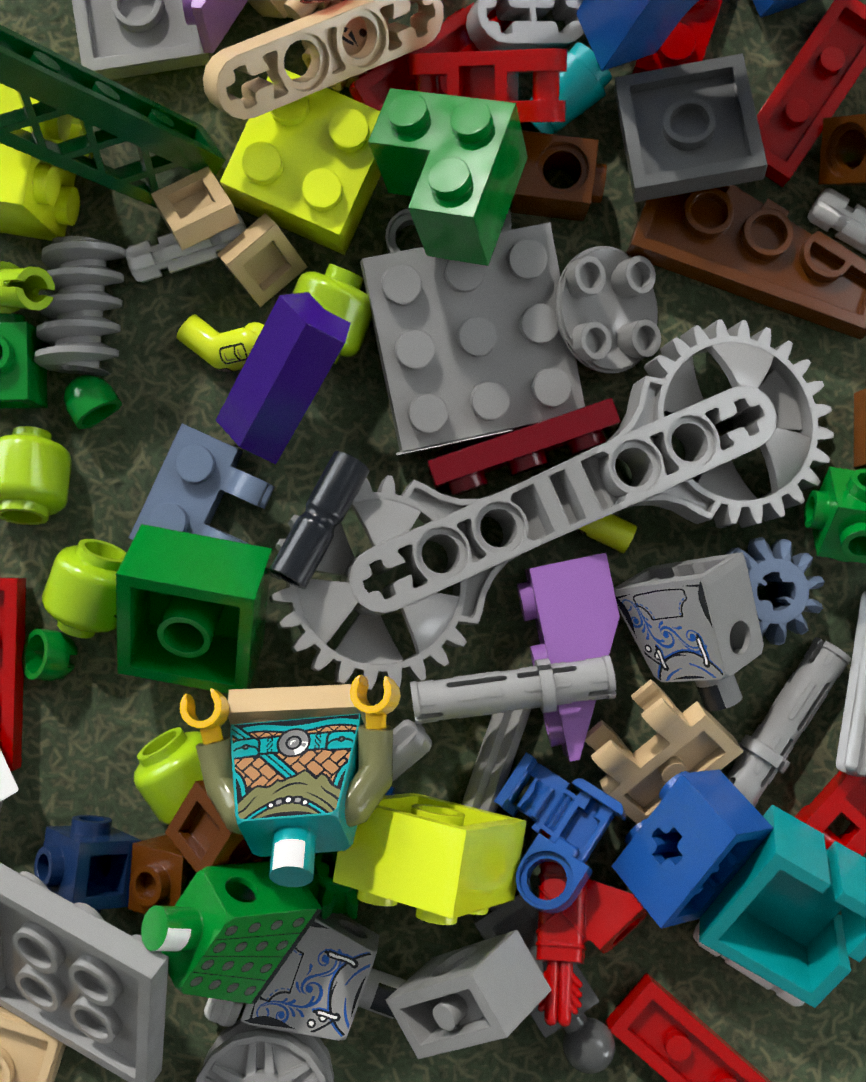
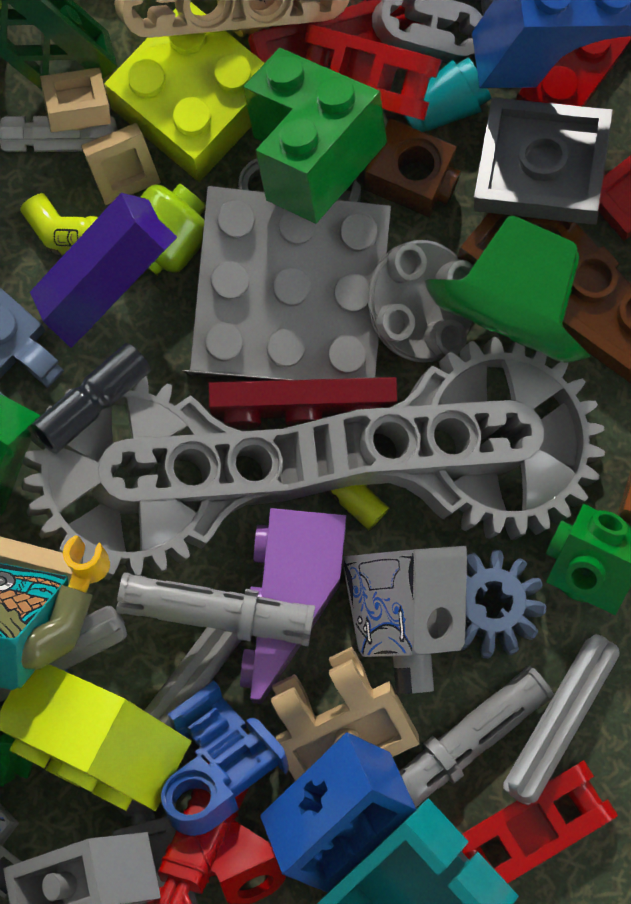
camera: 25 degrees right, 10 degrees down
(717, 270) = (519, 289): none -> green piece

